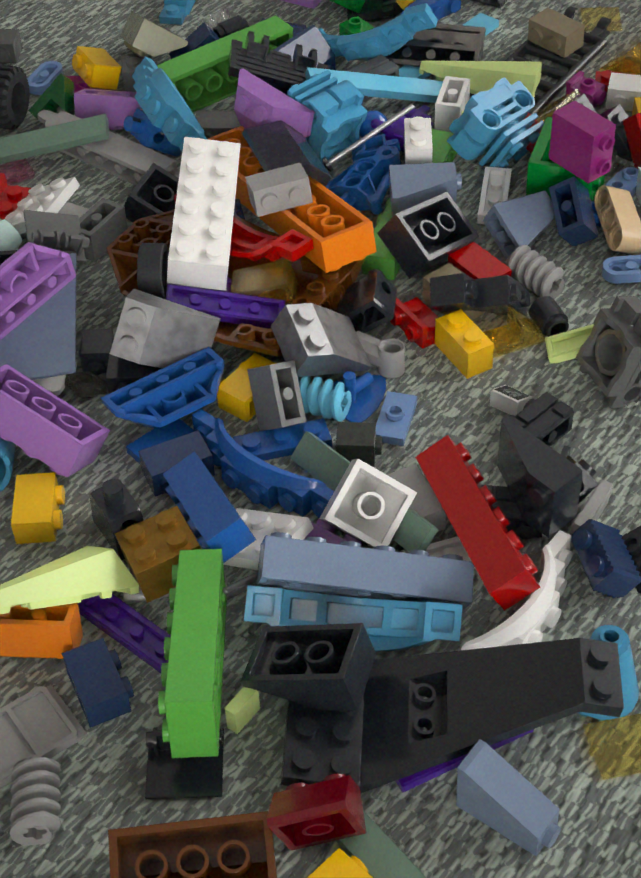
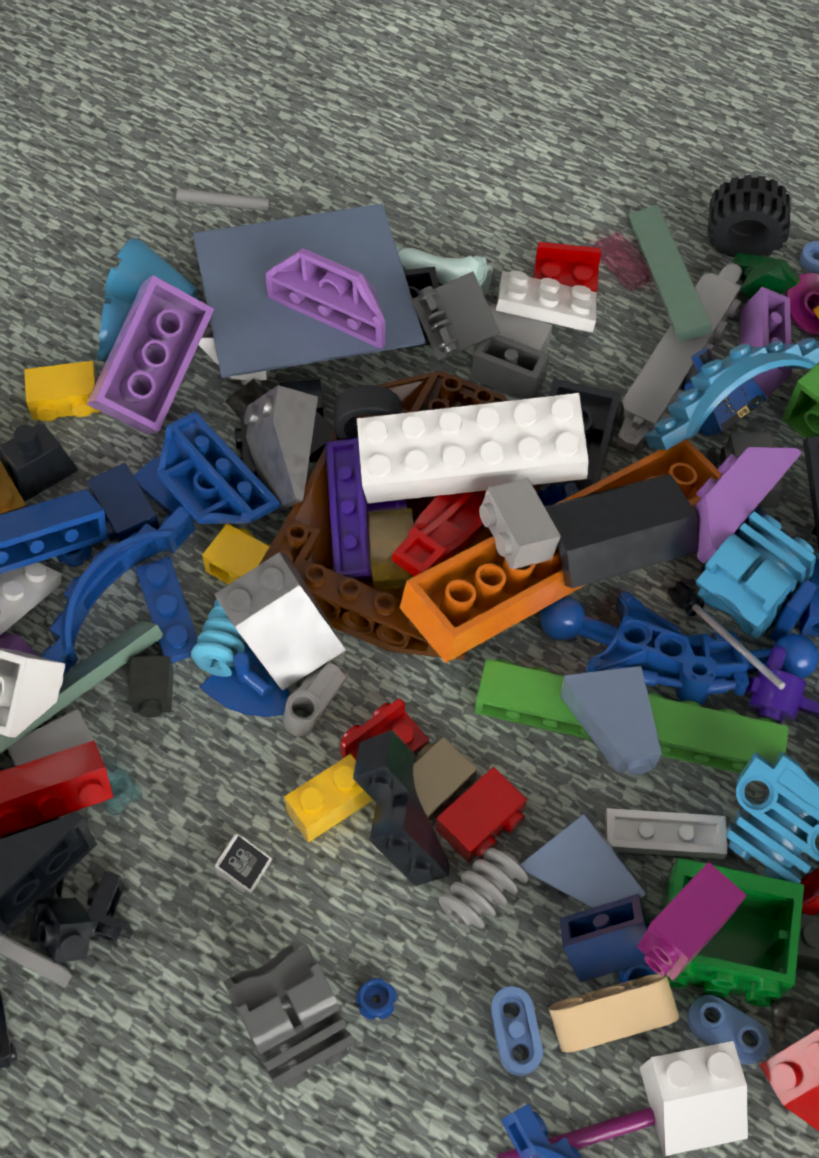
camera: 80 degrees right, 15 degrees up
(276, 395) = (200, 581): dark grey brick -> none
(369, 301) = (386, 673): black torso -> none
(395, 417) = (207, 728): medium blue plate -> none
(417, 140) = (710, 706): white brick -> none
(427, 234) = (518, 735): black brick -> none
(516, 335) = (364, 866): clear yellow slope -> none
(545, 418) = (182, 893): black brick -> none
(548, 316) = (396, 910): black brick -> none
(566, 344) = (344, 948): yellowish green tile -> none

